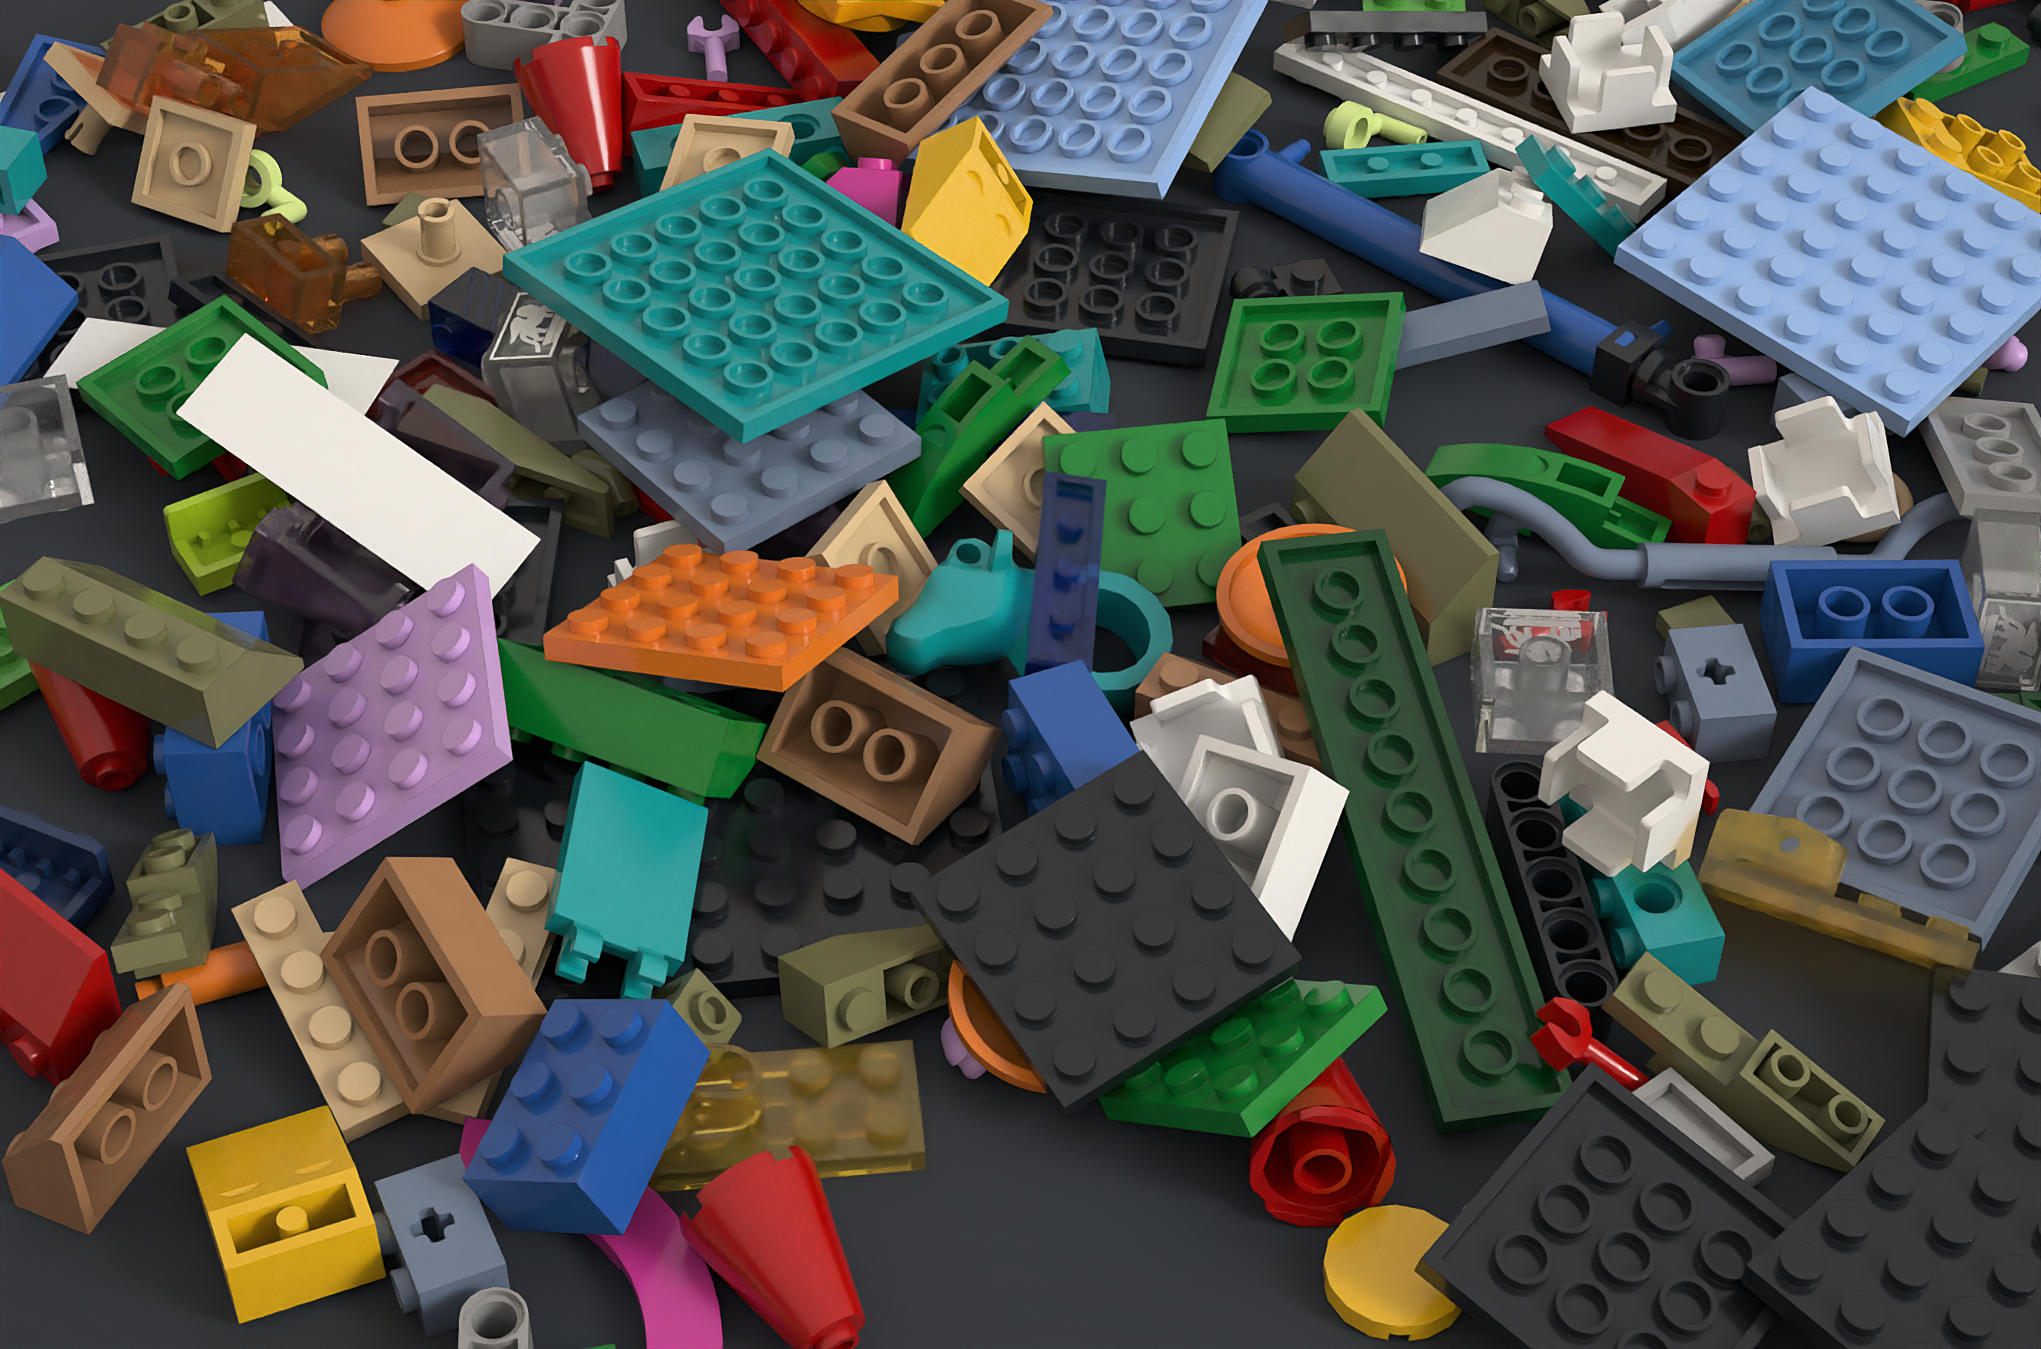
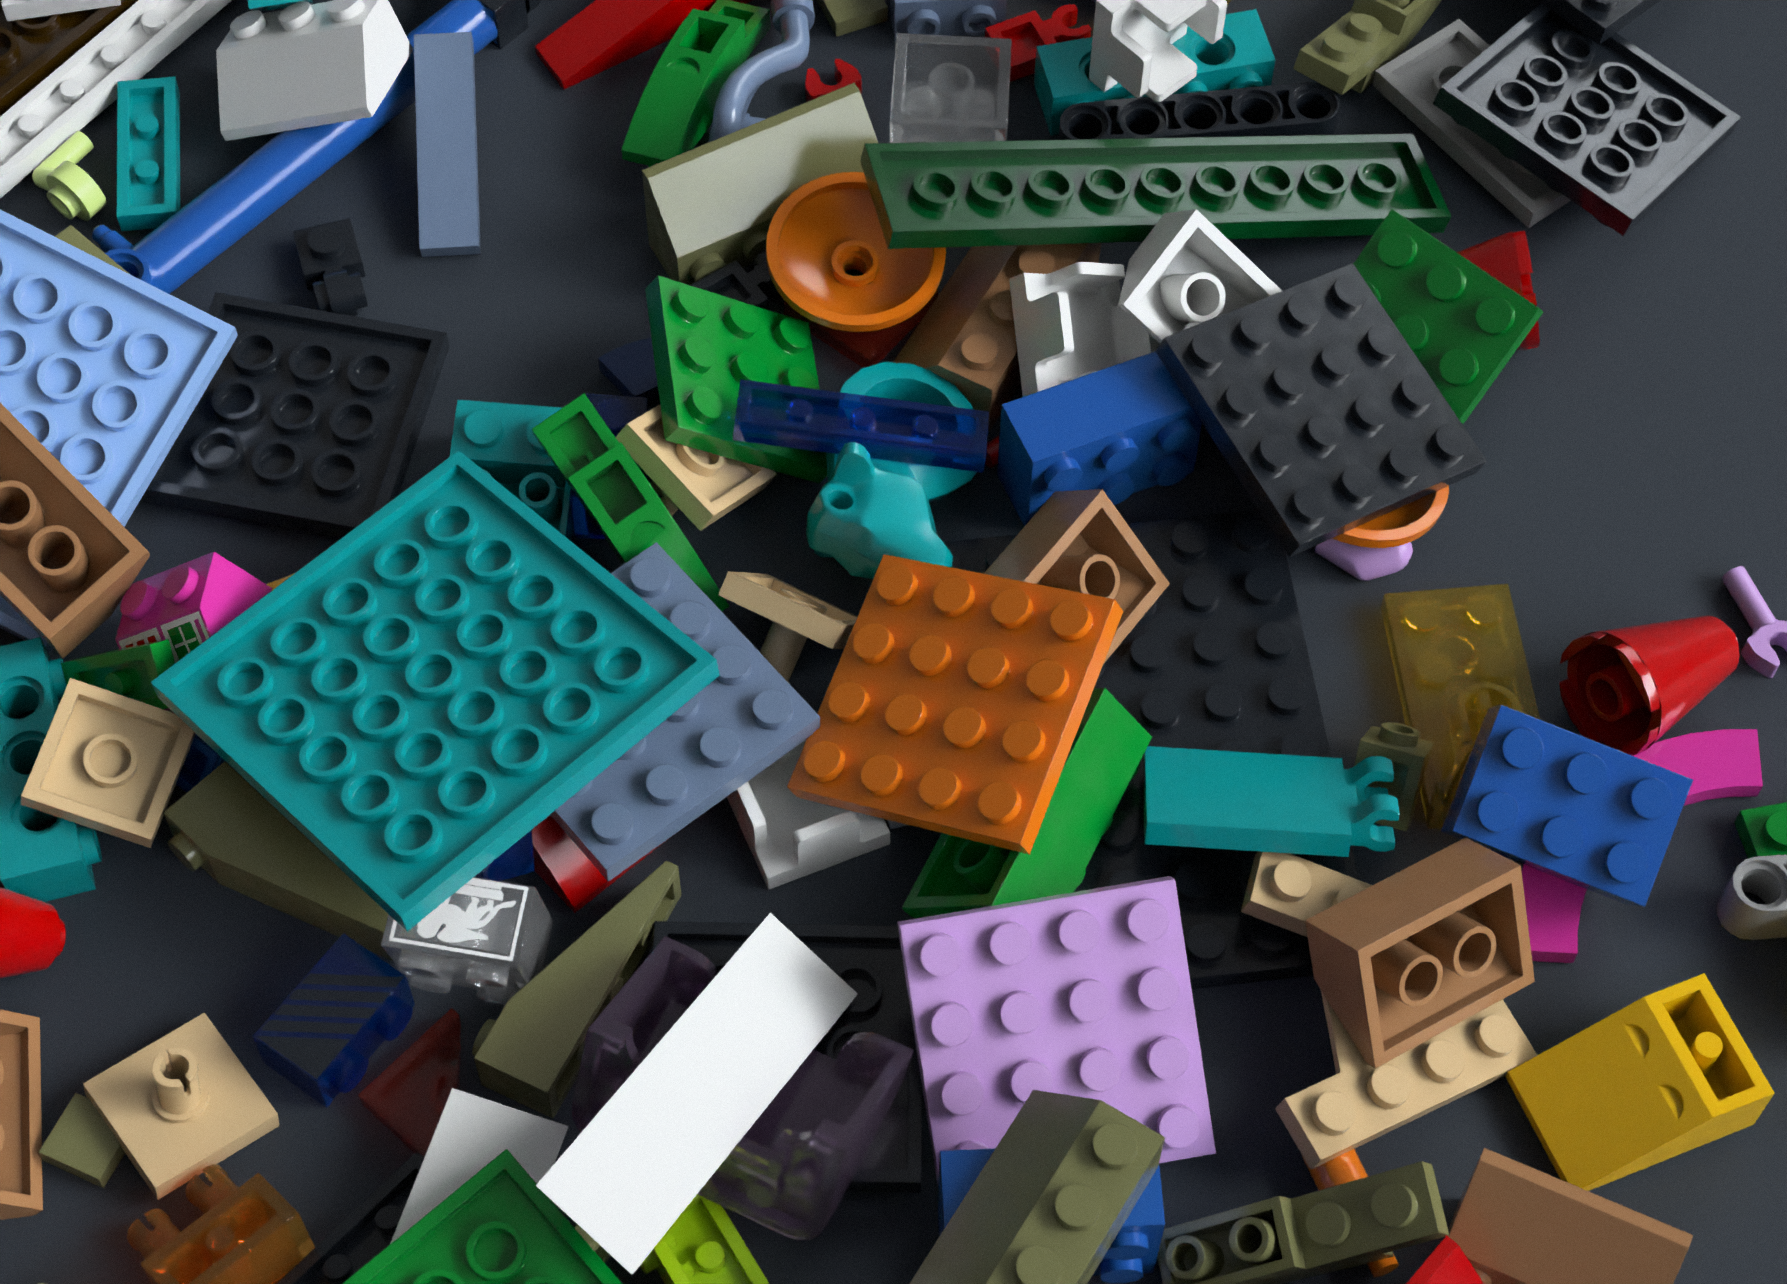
camera: 90 degrees left, 15 degrees up
(438, 1242) = (1663, 946): sand blue brick -> none
(531, 183) = (125, 975): clear brick -> none
(622, 490) = (598, 896): olive arm -> none
(863, 982) = (1339, 624): olive slope -> none
(967, 201) = (213, 509): yellow slope -> none
(1307, 361) = (485, 245): green plate -> none
(1374, 1278) = (1583, 270): yellow tile -> none
(1569, 1040) = (1369, 119): red bar -> none

